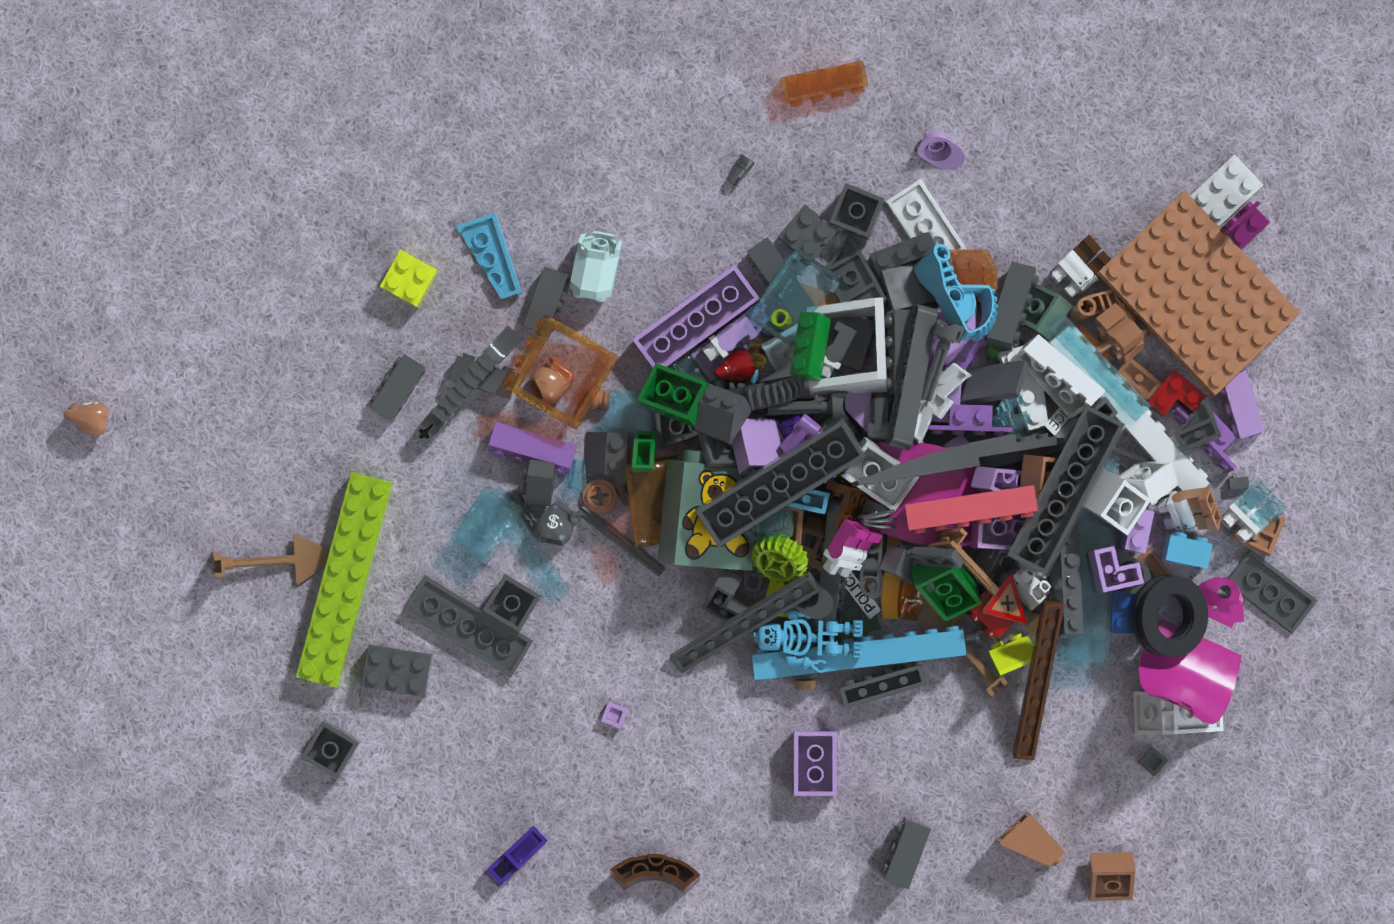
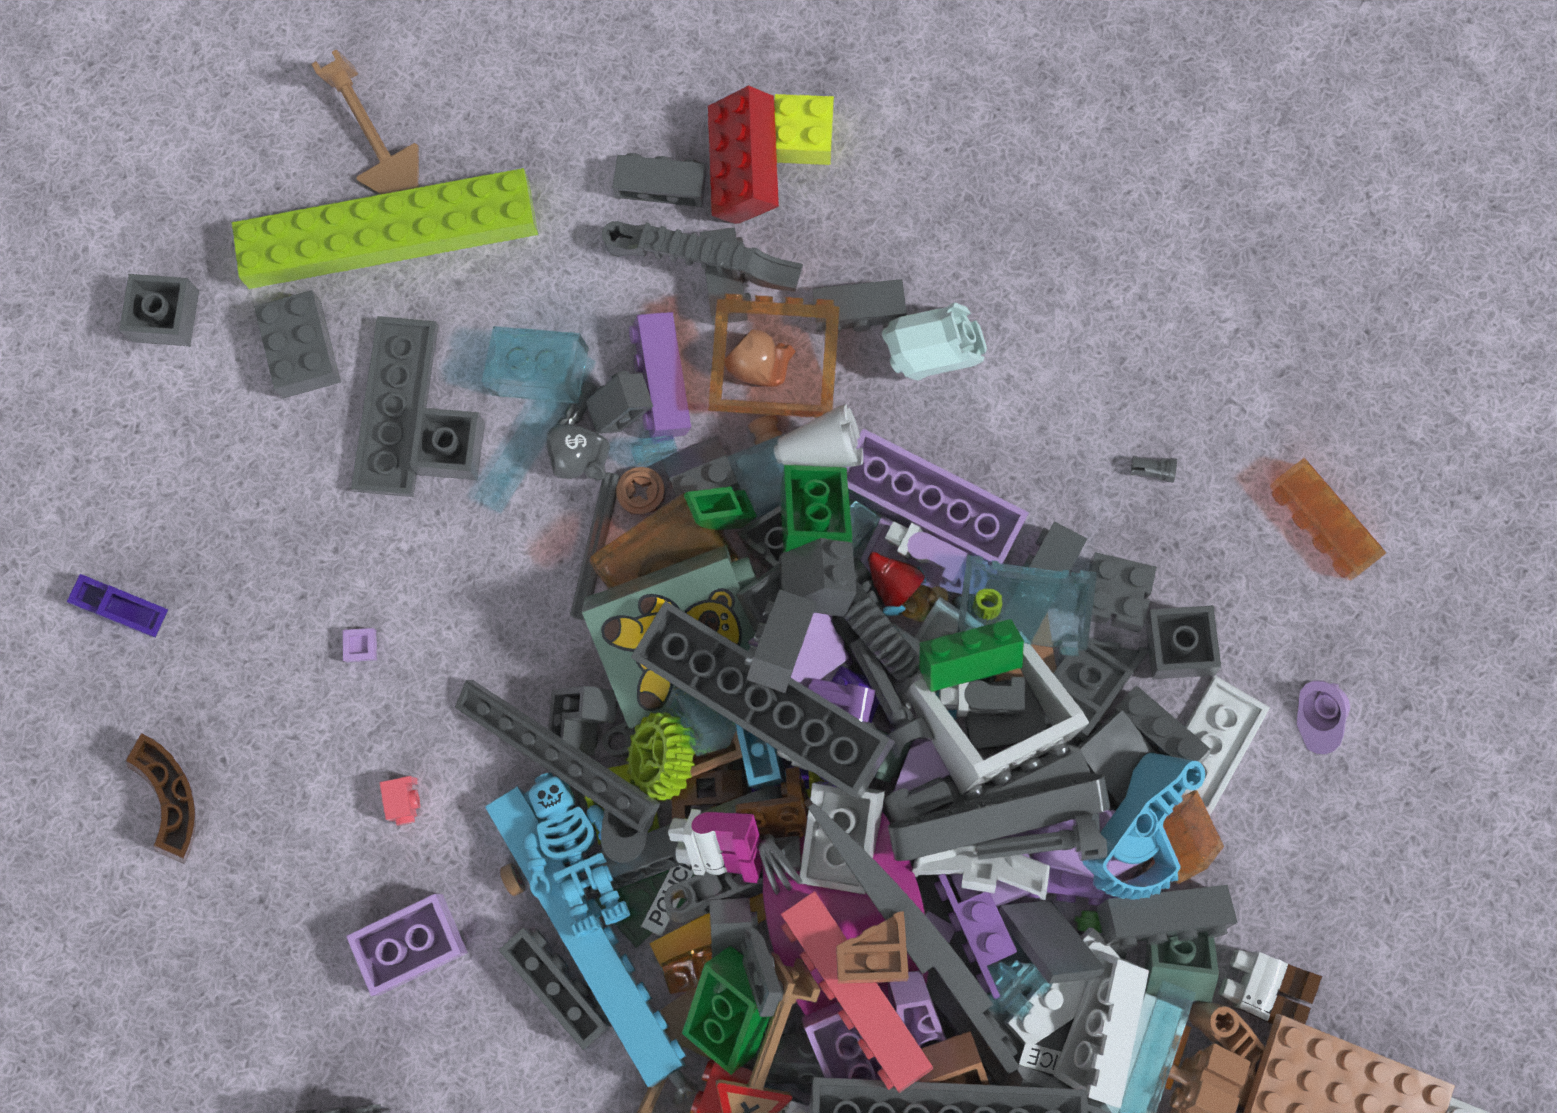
camera: 70 degrees right, 10 degrees down
(411, 327) = (743, 155): none -> red brick
(491, 252) = (895, 204): medium azure wing -> none
(632, 369) = (823, 442): none -> white cone
(725, 730) = (400, 800): none -> coral brick
(753, 455) = (779, 640): none -> dark grey brick
(957, 487) = (875, 954): none -> nougat wing

